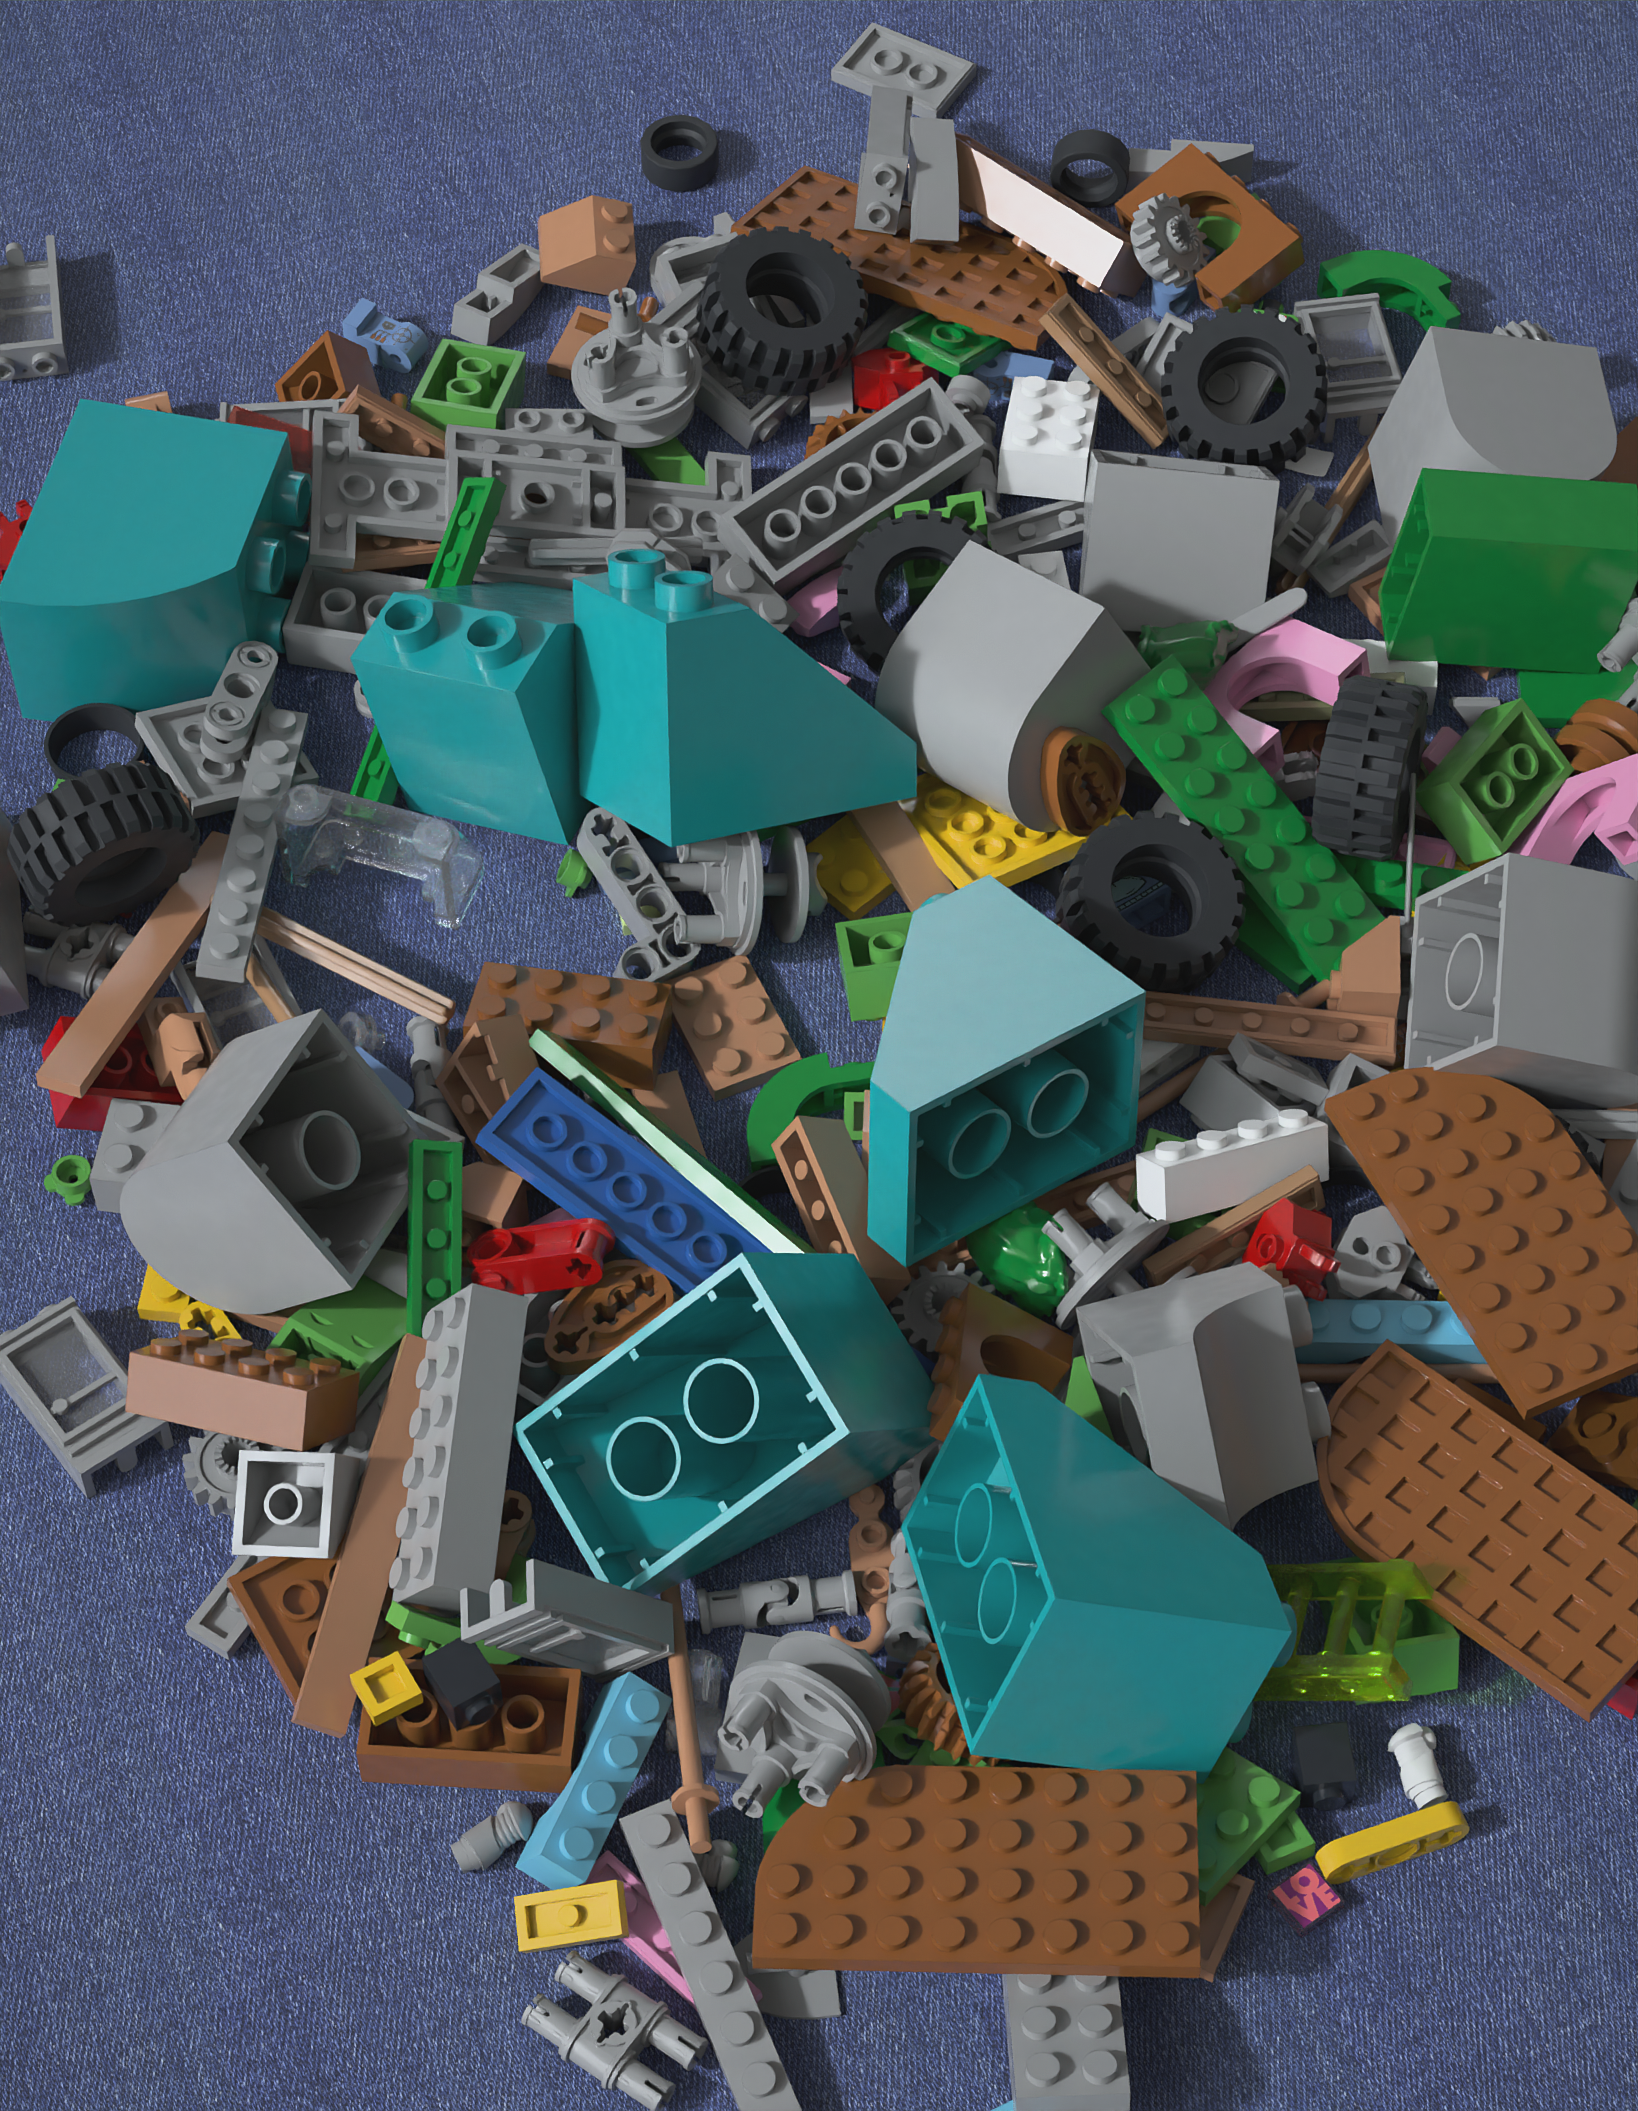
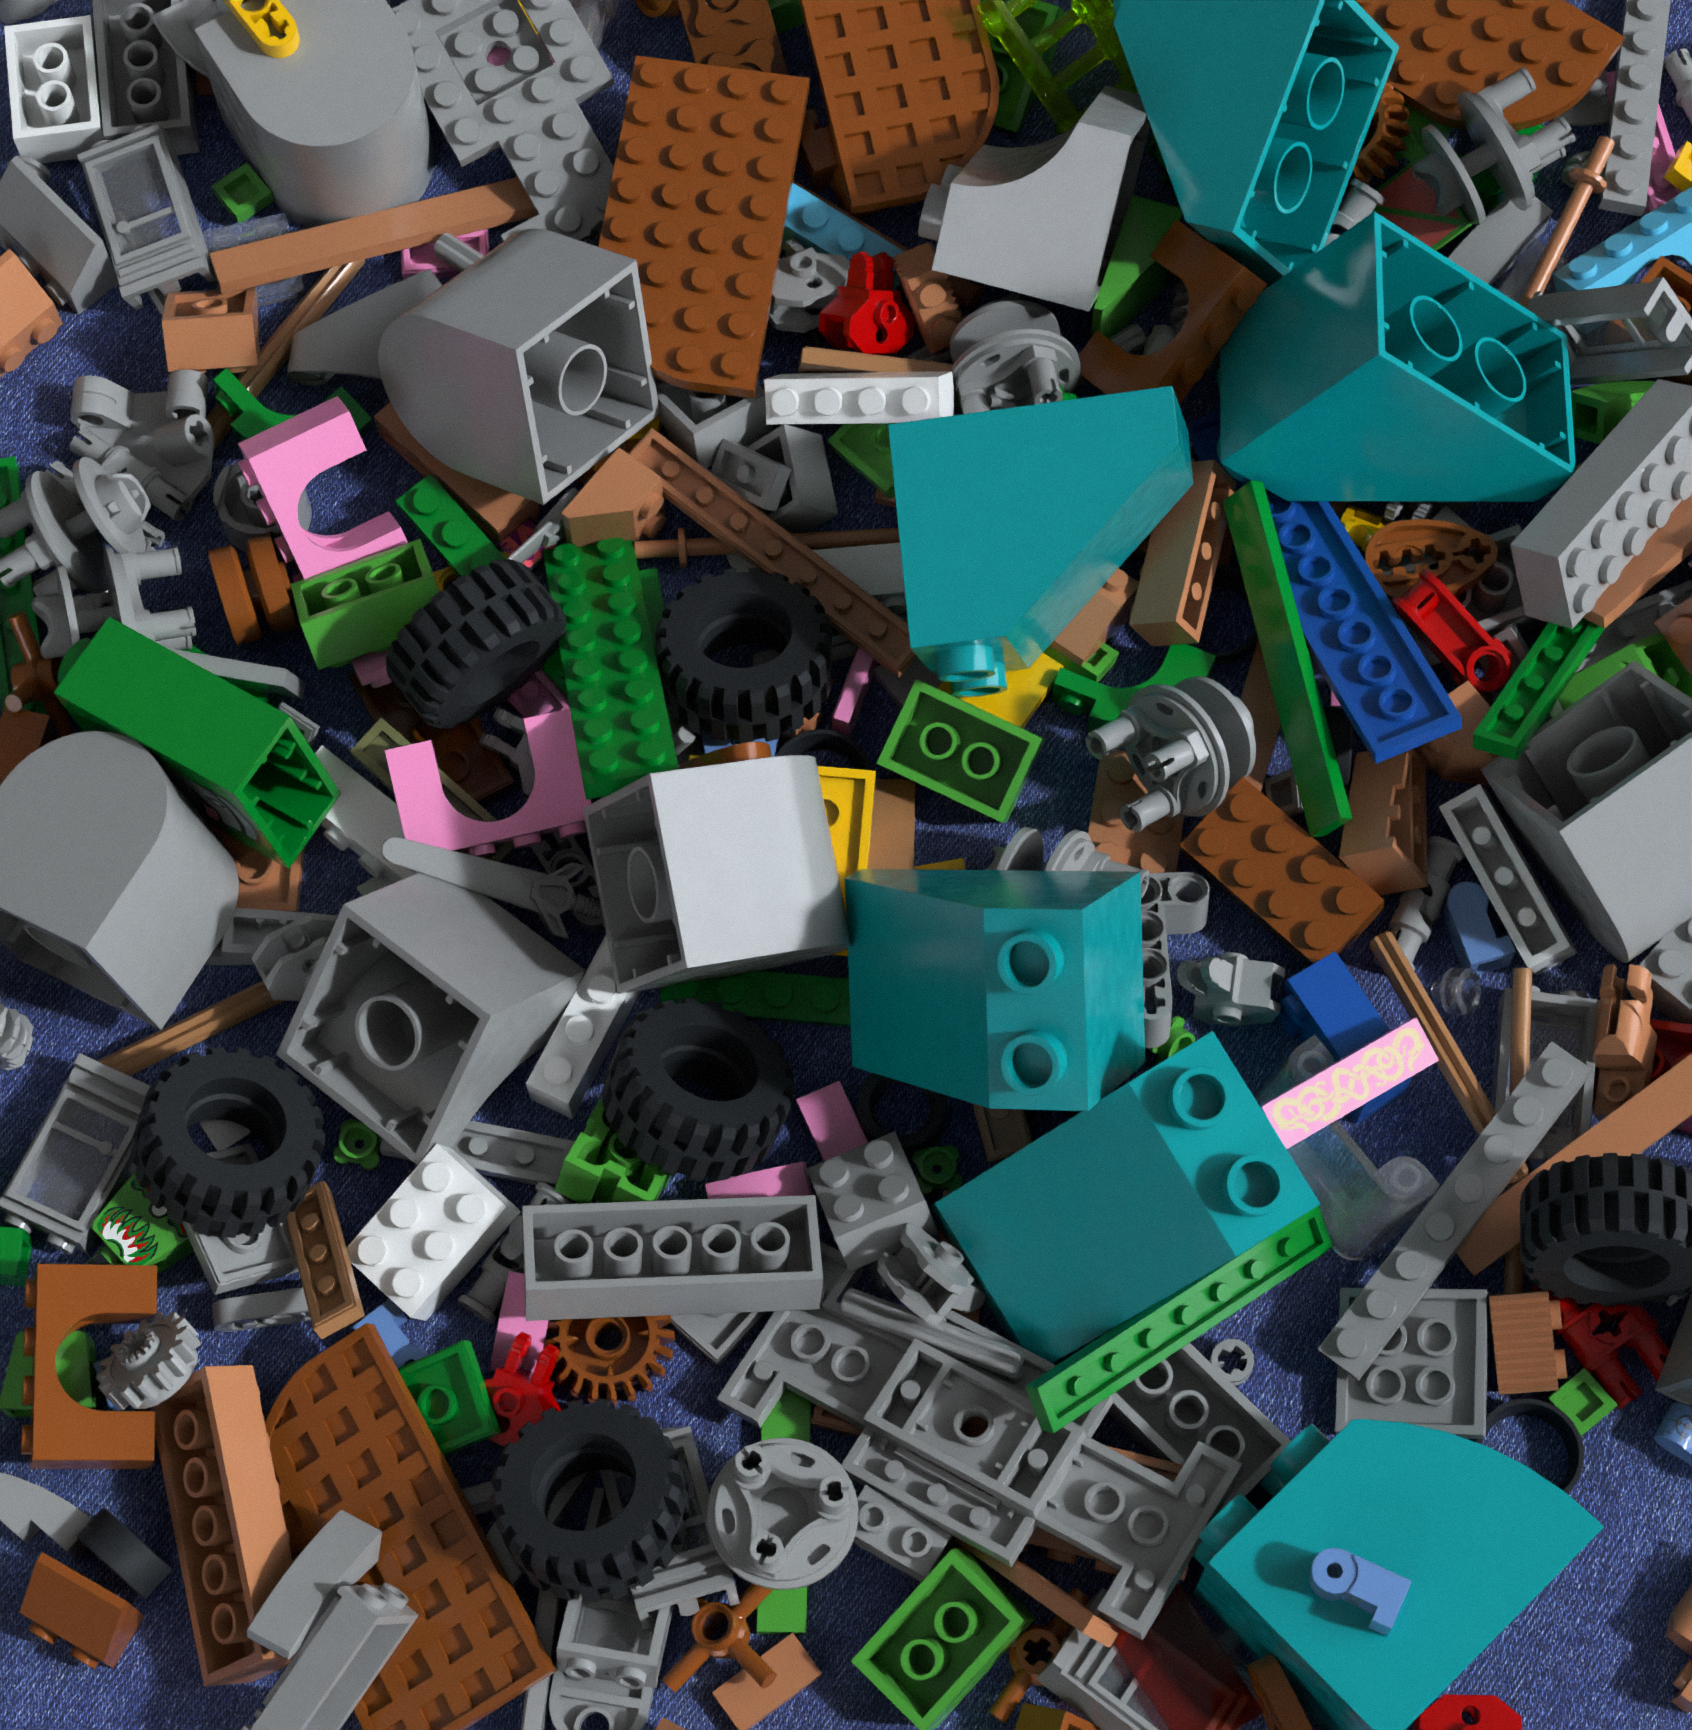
camera: 145 degrees left, 15 degrees up
(161, 458) = (1348, 1577): none -> medium blue leg
(238, 702) = (1390, 1362): light grey piece -> none
(395, 832) = (1349, 1082): none -> tile
(426, 927) = (1335, 1009): none -> blue brick
(551, 911) = (1232, 989): none -> light grey hinge
(723, 1019) = (1182, 746): none -> light grey piece
(968, 395) = (475, 1325): light grey plate -> none
(1110, 118) = (79, 1612): none -> dark orange slope
(1196, 646) = (531, 857): green piece -> none
(1557, 671) = (249, 675): none -> light grey tile

